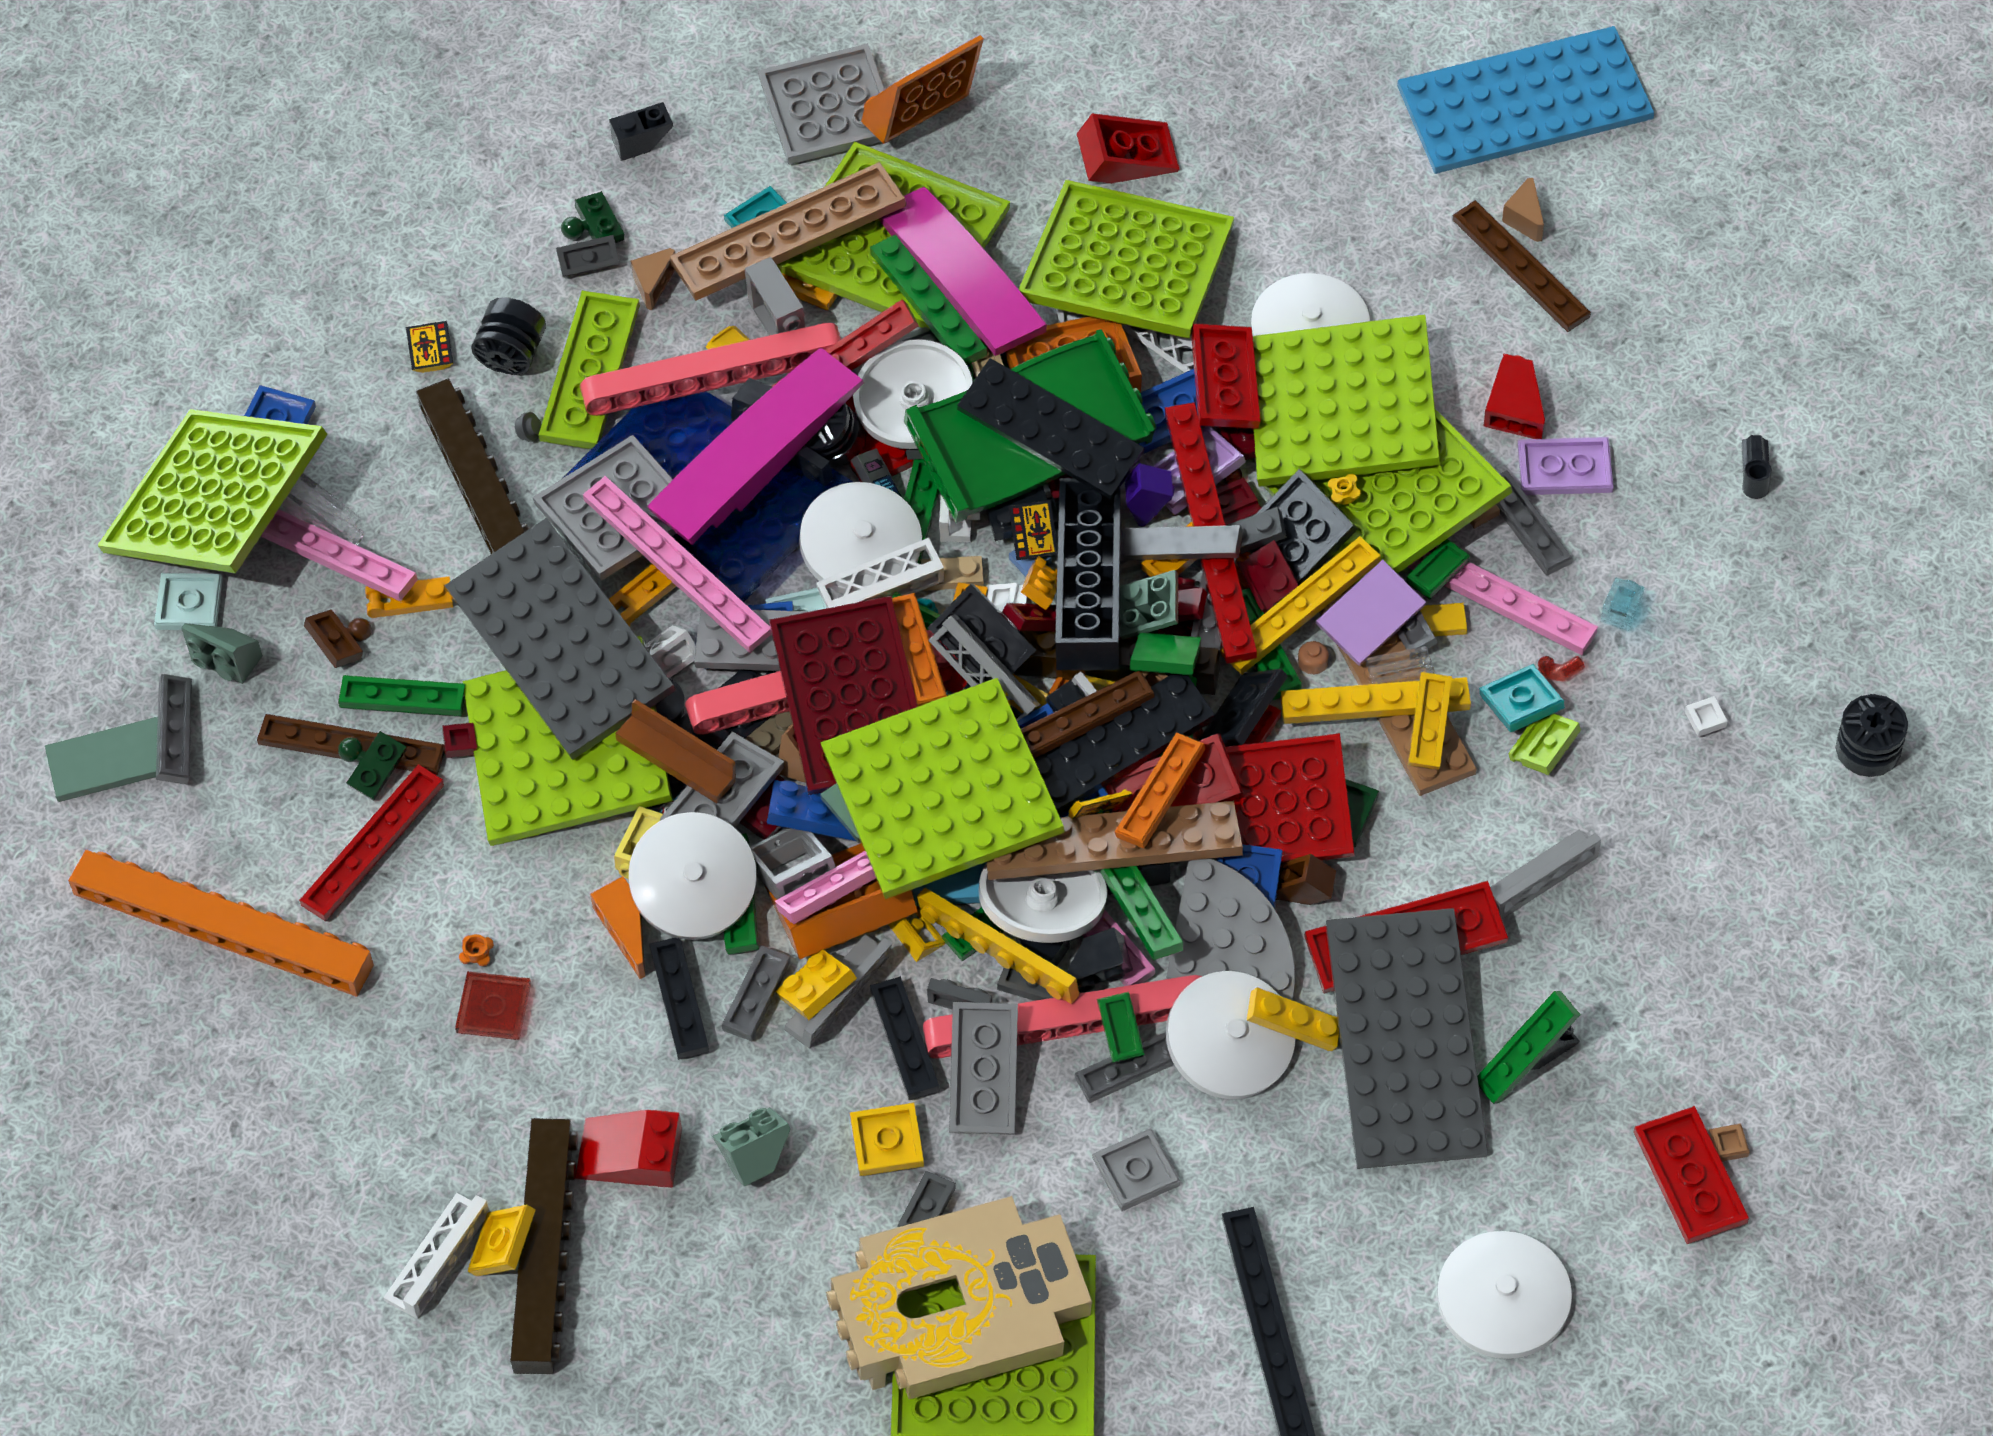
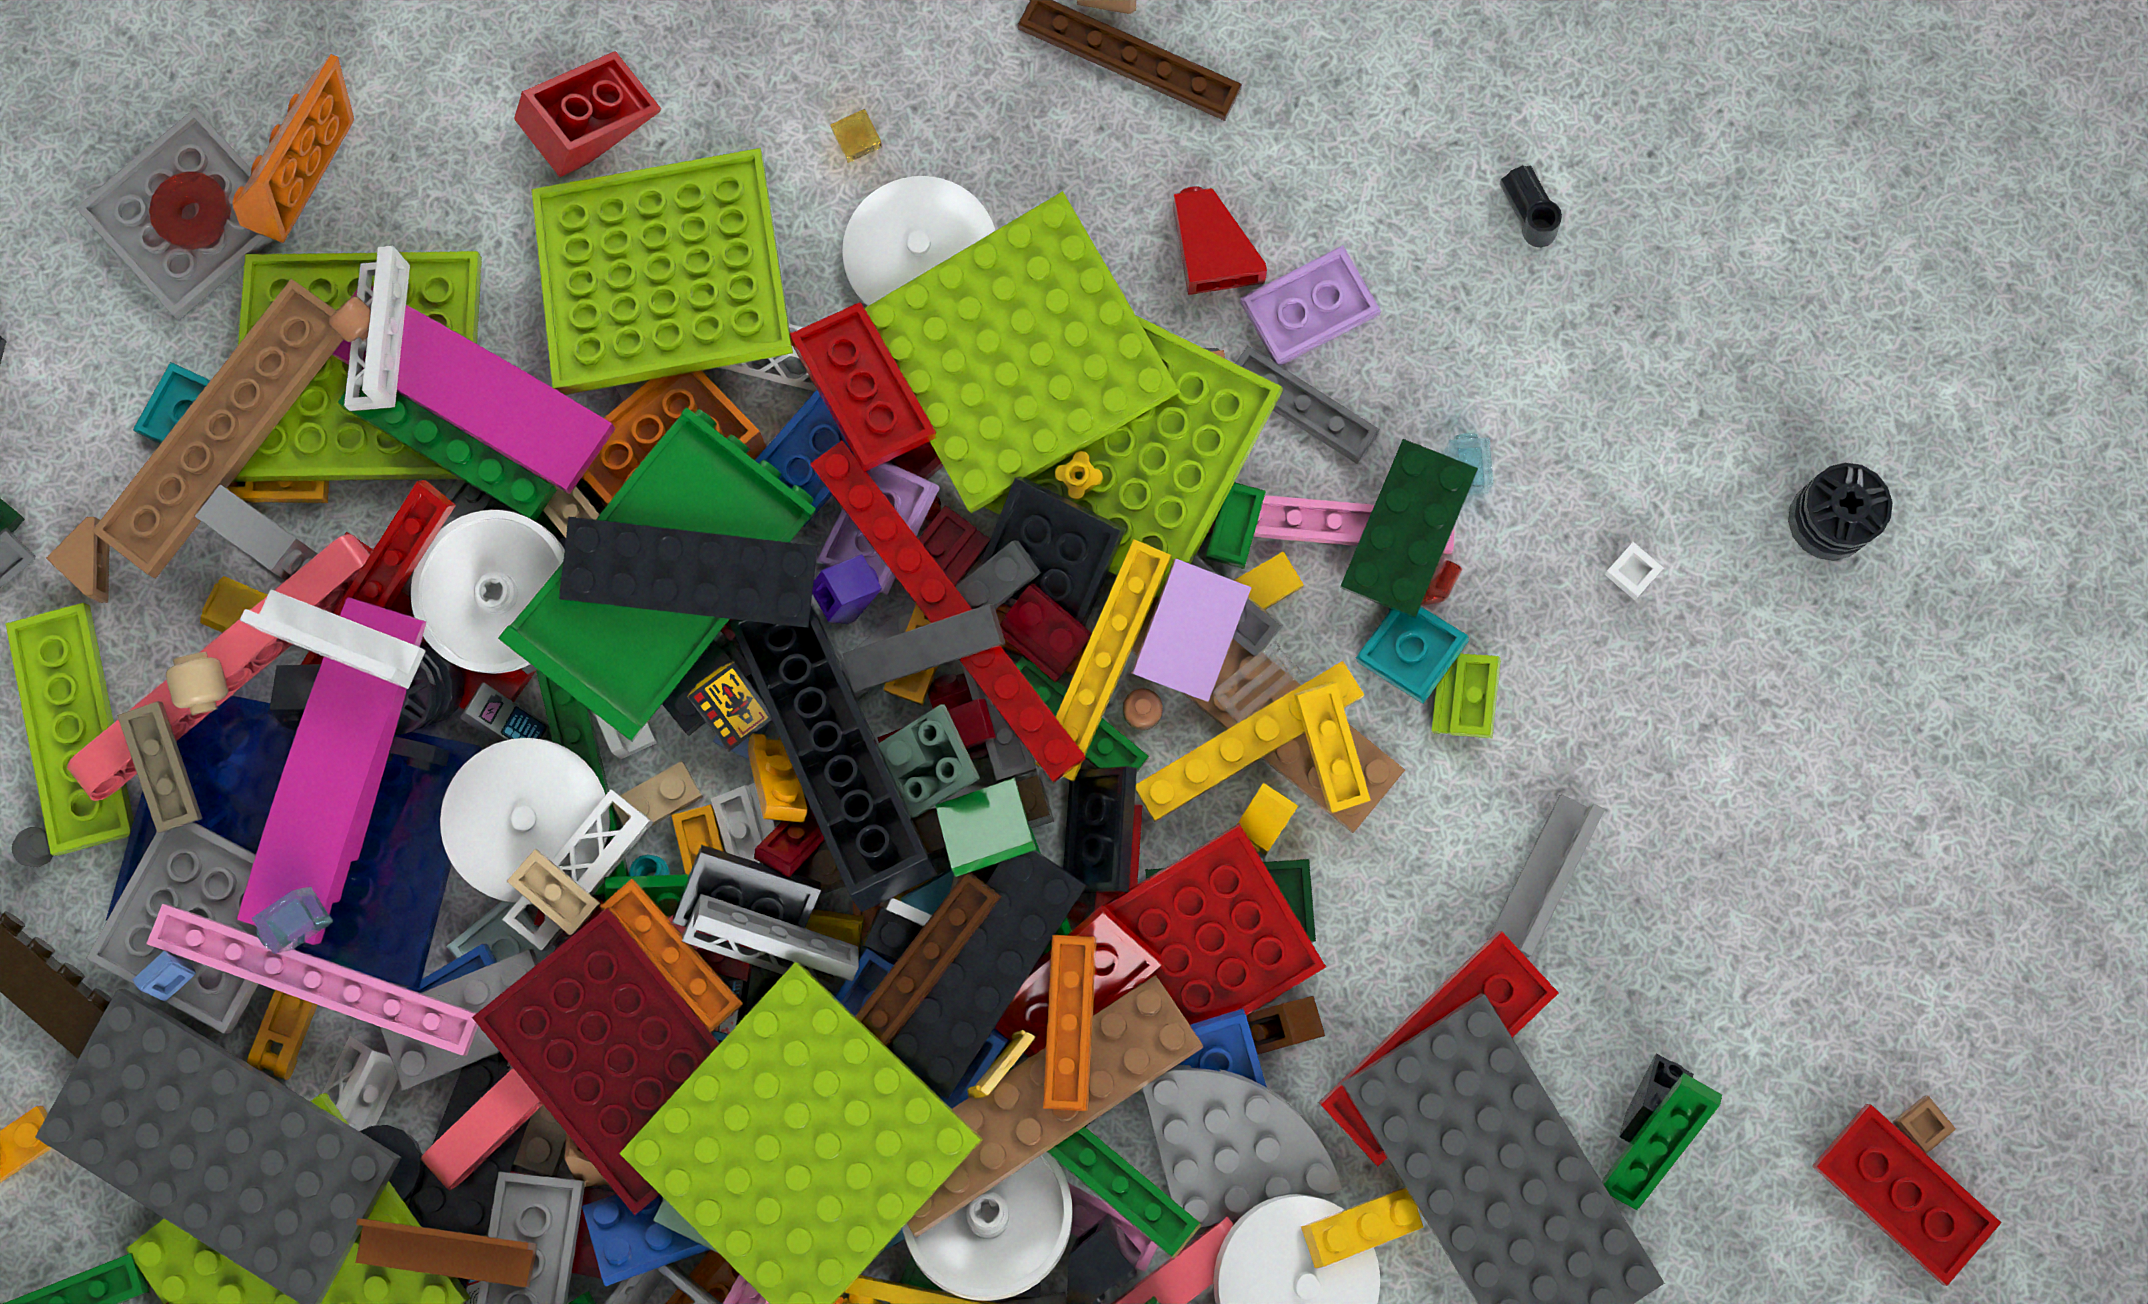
camera: 25 degrees left, 20 degrees up
(582, 520) = (164, 976): none -> medium blue tile
(643, 401) = (159, 767): none -> dark tan plate
(685, 513) = (291, 920): none -> clear light blue brick
(695, 361) = (196, 682): none -> tan head
(802, 364) = (336, 638): none -> white fence
(832, 87) = (174, 195): none -> clear red tile
(859, 574) = (553, 892): none -> tan plate
(908, 198) = (351, 320): none -> nougat piece
(920, 213) = (384, 334): none -> white fence
(1303, 236) = (856, 135): none -> clear yellow plate
(1363, 749) = (1266, 818): none -> yellow slope
(1557, 618) = (1409, 528): none -> dark green plate

